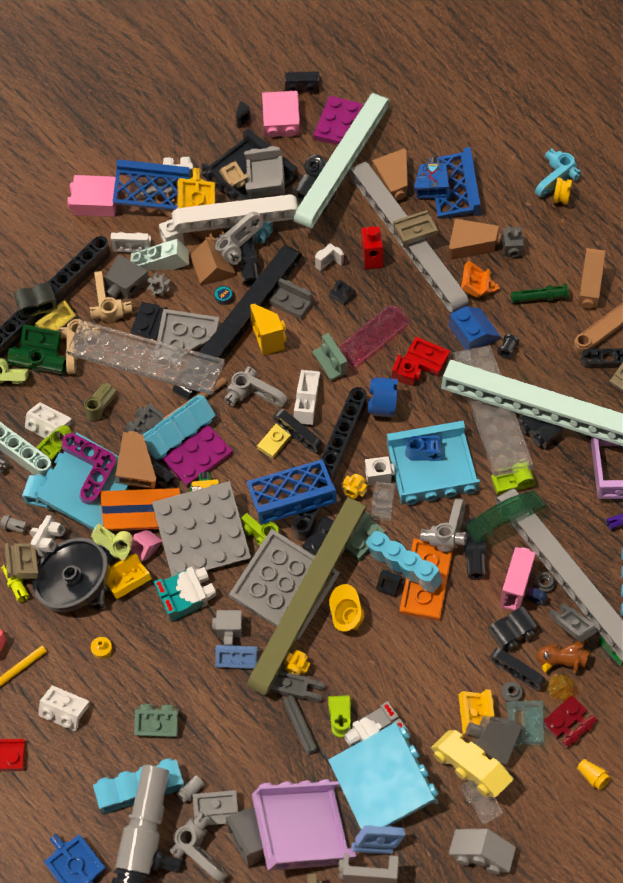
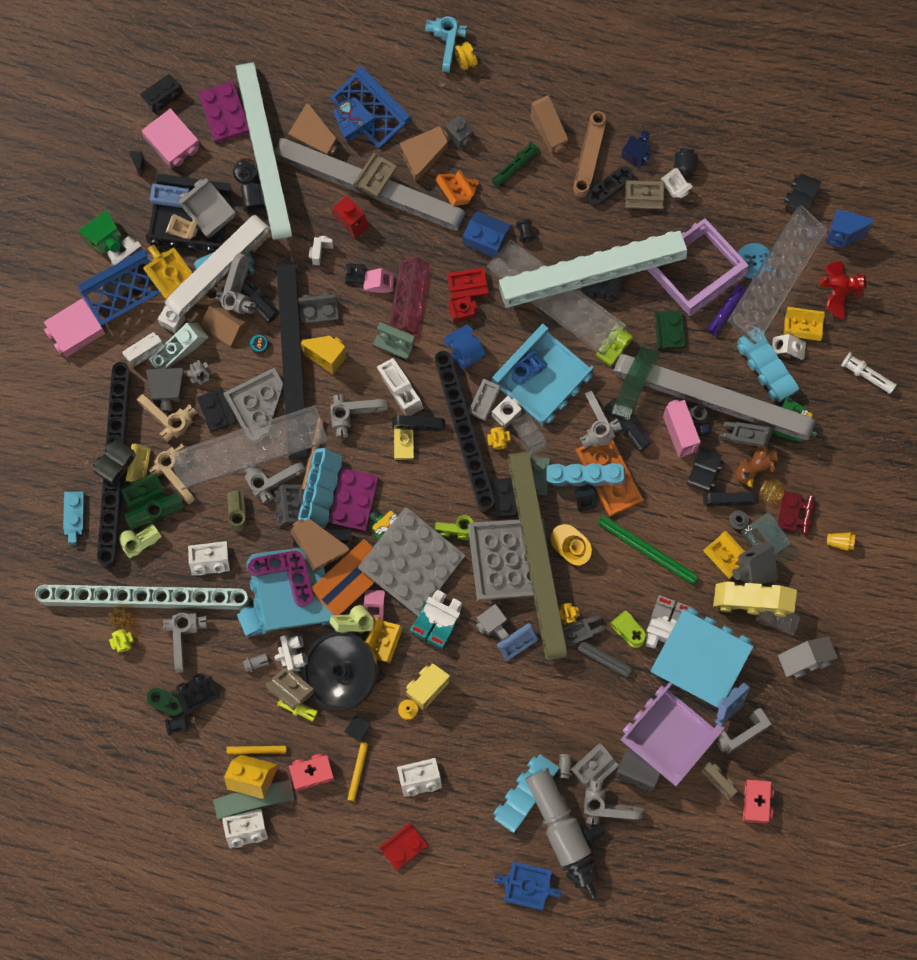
camera: 40 degrees left, 15 degrees up
(48, 634) = (358, 728): none -> black slope
(52, 444) = (232, 575): lime piece -> none
(131, 639) = (427, 686): none -> light yellow slope
(156, 721) = (497, 734): sand green bracket -> none
(159, 401) = (256, 474): none -> light grey piece
(172, 144) = (102, 234): none -> green torso
(239, 145) = (166, 195): none -> medium blue plate
(296, 502) = (468, 490): blue fence -> none
(356, 308) = (379, 281): none -> bright pink brick
(368, 449) = (484, 399): none -> light grey plate
(411, 662) = (647, 549): none -> green axle
(572, 499) = (669, 330): none -> dark green plate

